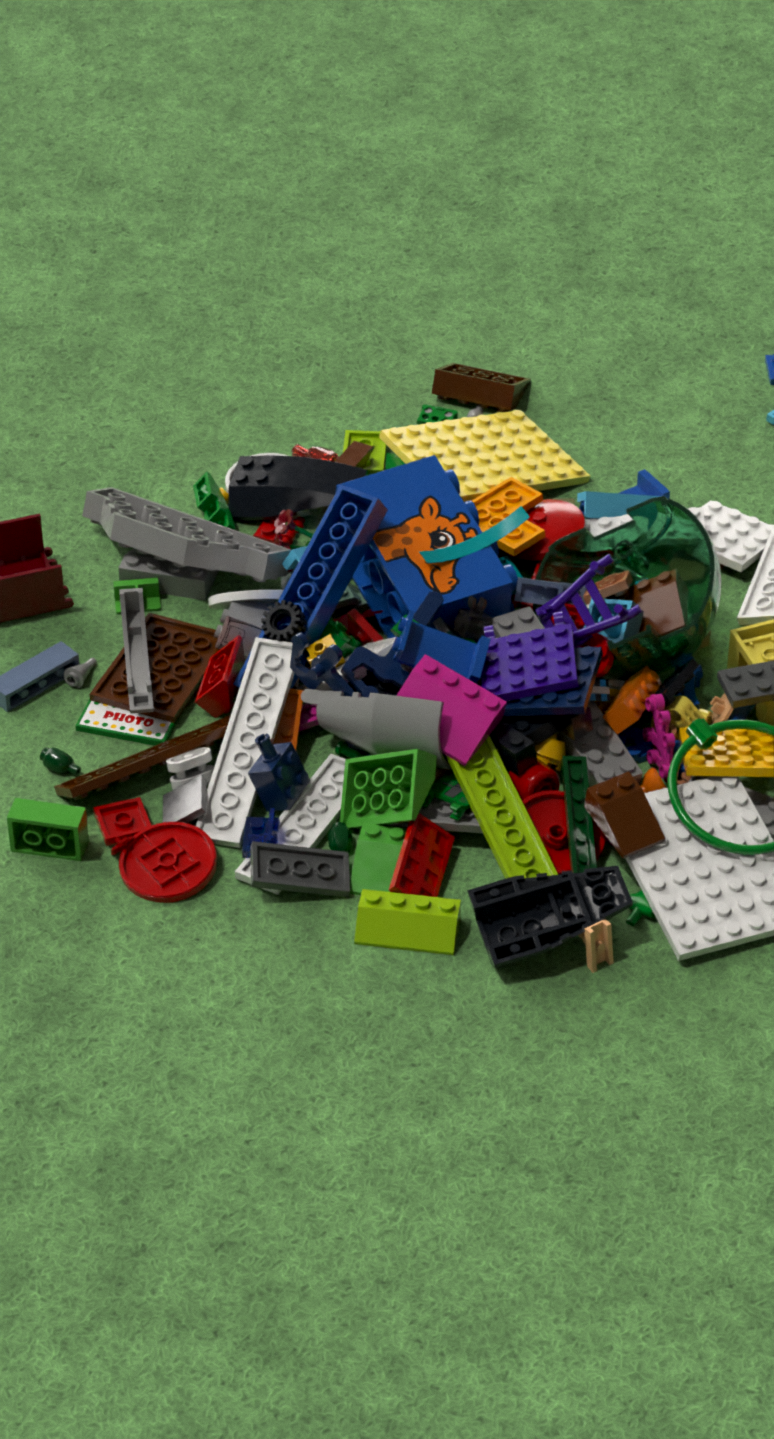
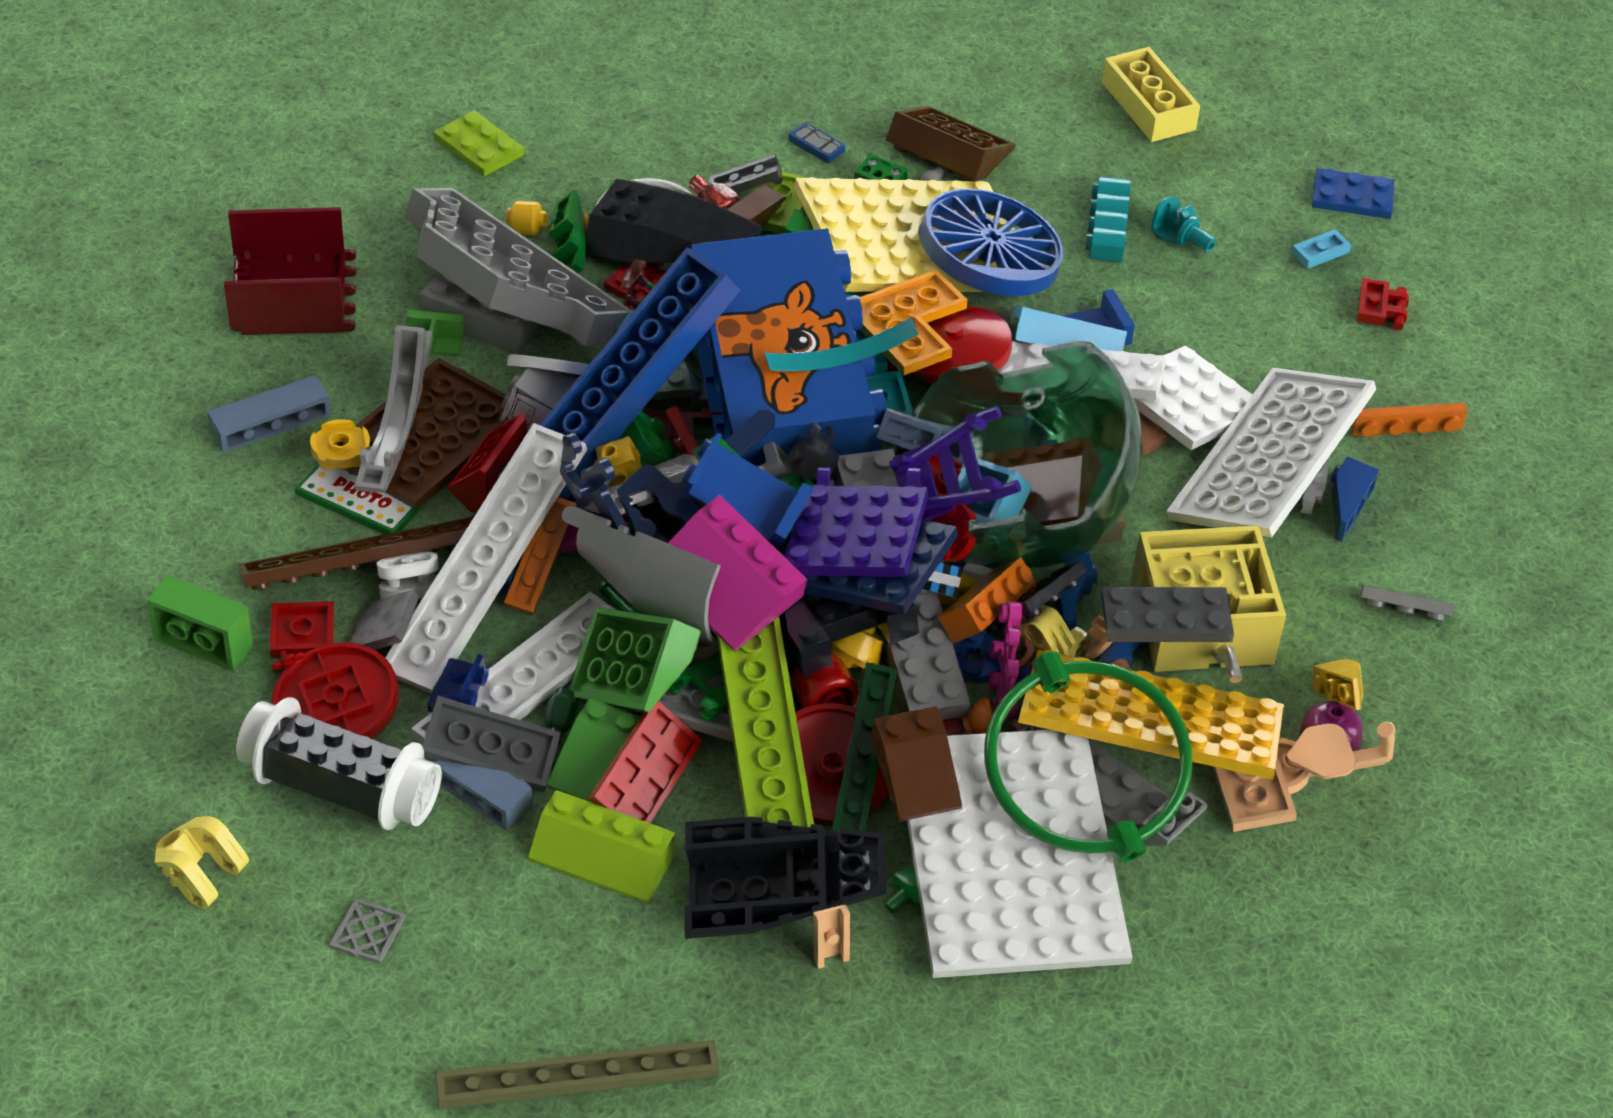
camera: 10 degrees right, 5 degrees up
(59, 761) = (255, 532): dark green plant -> none
(77, 674) = (317, 418): light grey cone -> none
(102, 988) = (184, 847): none -> light yellow piece
(112, 688) = (325, 447): none -> yellow plate
(114, 452) = (479, 143): none -> lime plate
(176, 498) = (526, 218): none -> yellow head
(194, 903) = (338, 764): none -> brick
(253, 1027) = (378, 911): none -> light grey window
(276, 614) = (564, 401): black tyre -> none
(278, 774) = (506, 609): dark blue brick -> none
(308, 902) = (488, 791): none -> sand blue slope
(338, 436) = (751, 174): none -> dark grey hinge
(377, 405) = (817, 142): none -> tile
(447, 1073) = (577, 1074): none -> olive plate
(573, 455) = (989, 244): none -> blue piece
(612, 584) = (1006, 442): nougat plate -> none
(622, 323) = (1150, 94): none -> light yellow brick
(622, 420) = (1109, 218): none -> teal brick
(677, 415) = (1180, 225): none -> teal piece

